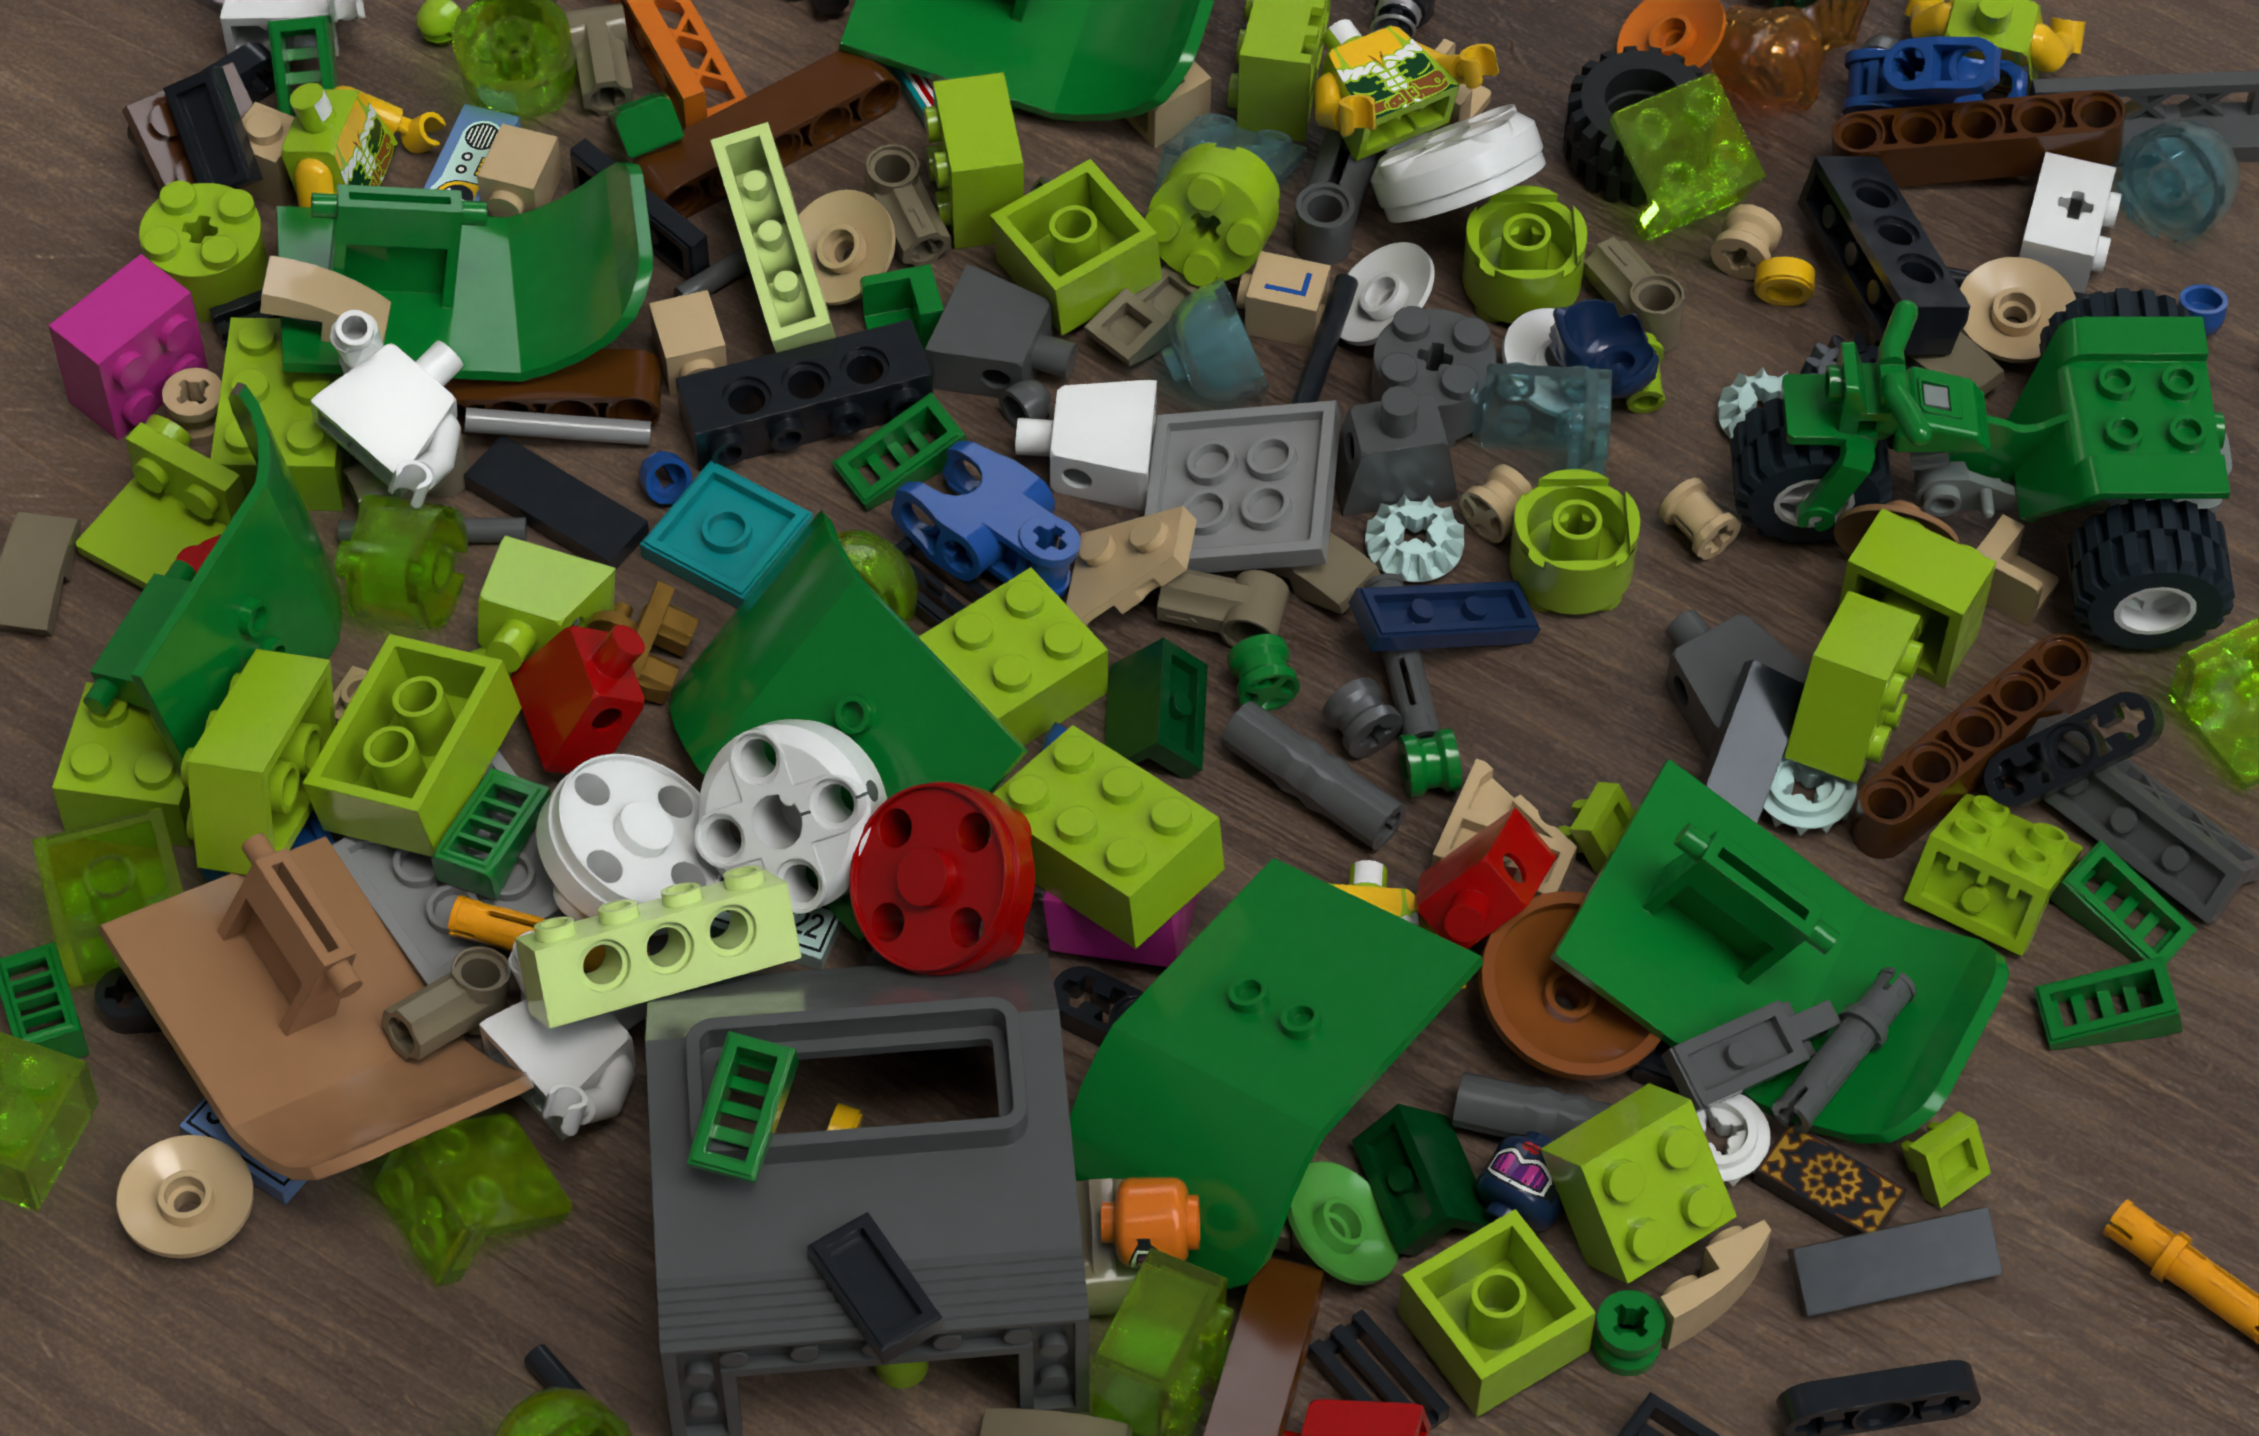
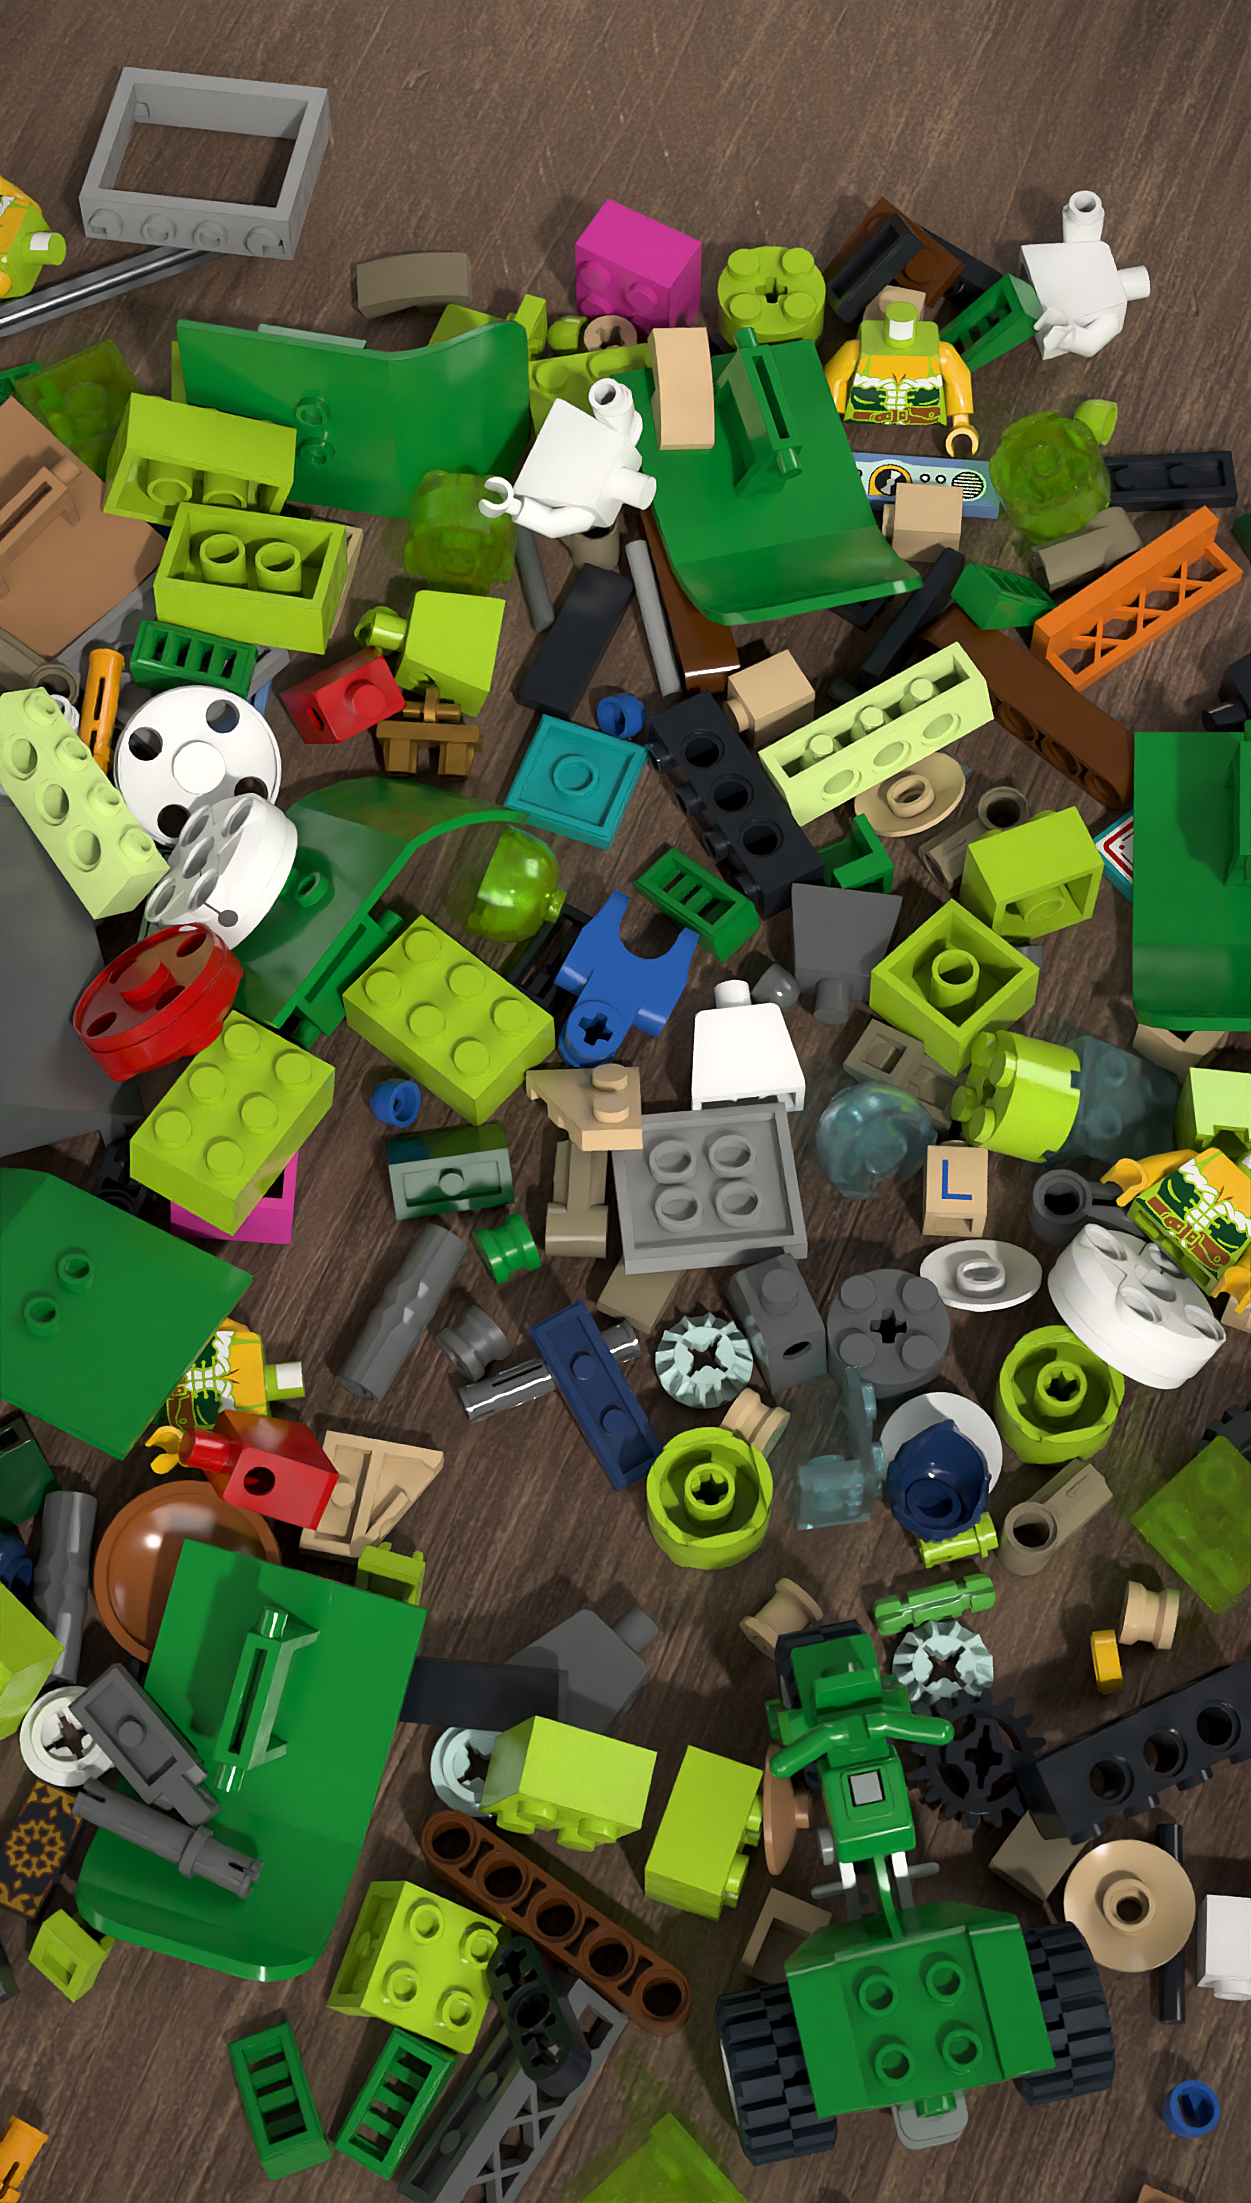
camera: 80 degrees right, 10 degrees up
(1326, 339) = (903, 1236): black bar -> none
(1429, 763) = (434, 1412): green wheel -> none
(1700, 404) = (933, 1603): none -> bright green axle

